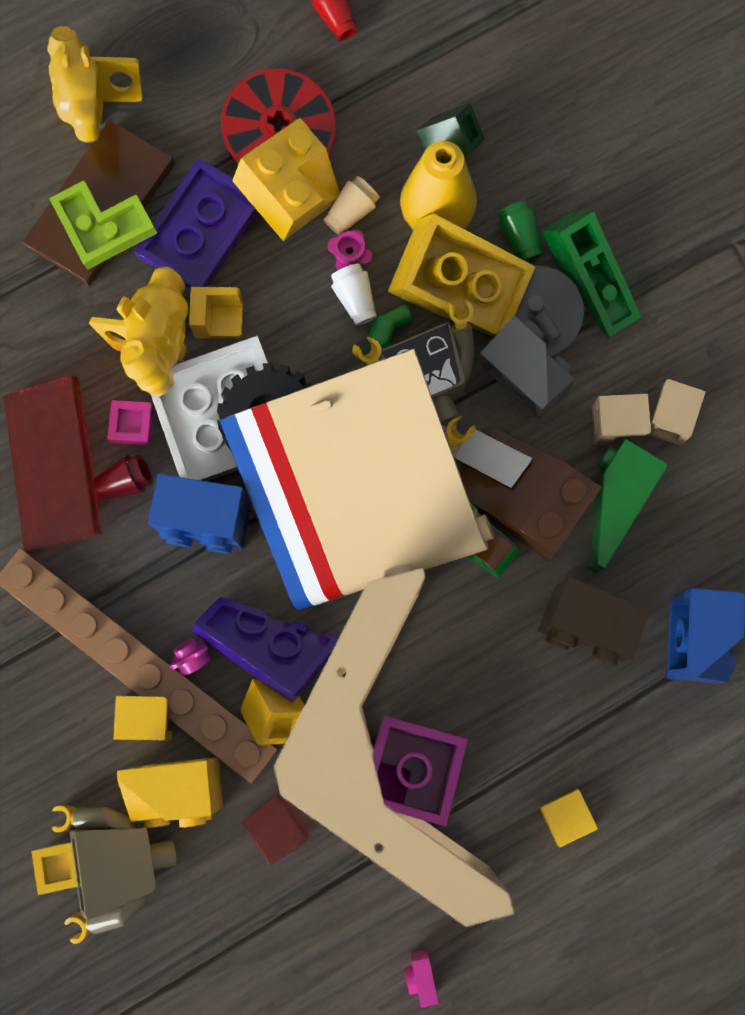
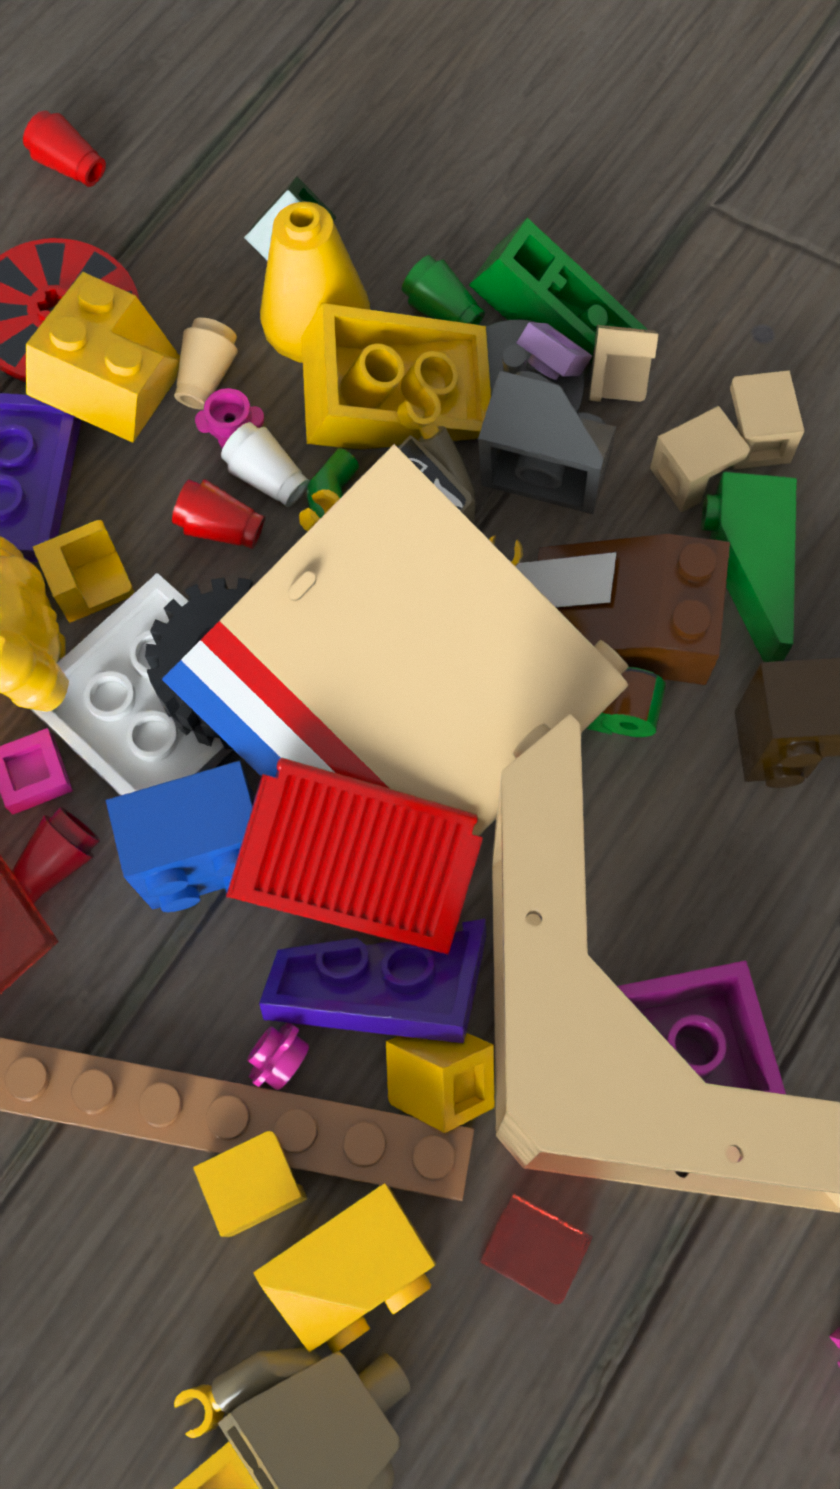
camera: 25 degrees left, 10 degrees down
(282, 573) = (356, 856): none -> red window
(310, 313) = (216, 515): none -> red cone
(566, 306) = (552, 351): none -> lavender plate
(607, 331) = (621, 363): none -> tan panel

